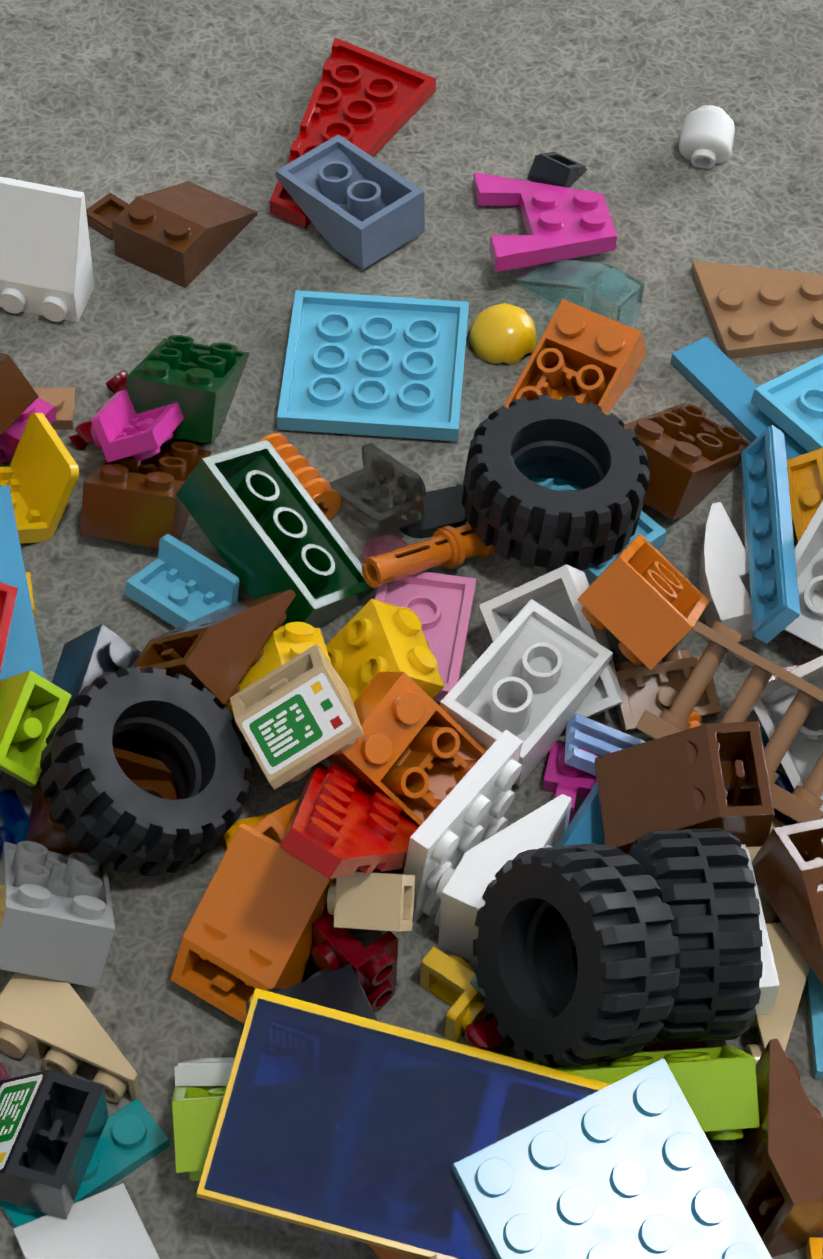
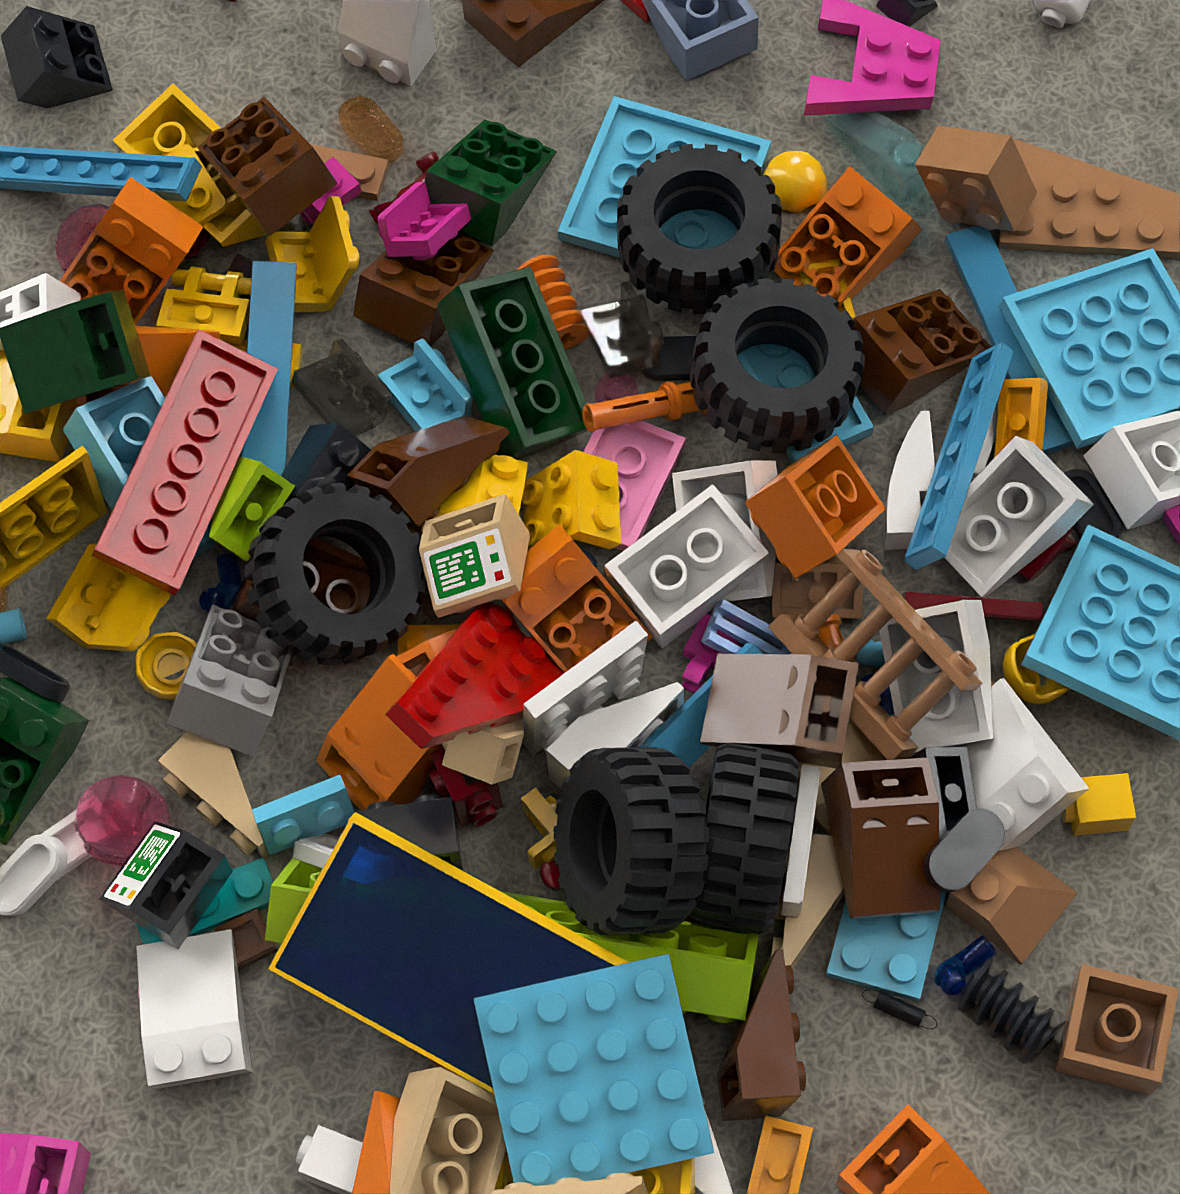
camera: 20 degrees right, 15 degrees up
(47, 364) = (371, 129): none -> clear orange tile
(92, 597) = (344, 390): none -> clear smoke bracket
(148, 1191) = (249, 938): none -> reddish brown tile
(177, 1033) = (304, 814): none -> medium azure bracket
(421, 337) = (691, 182): none -> black tyre
(690, 289) = (976, 178): none -> medium nougat brick

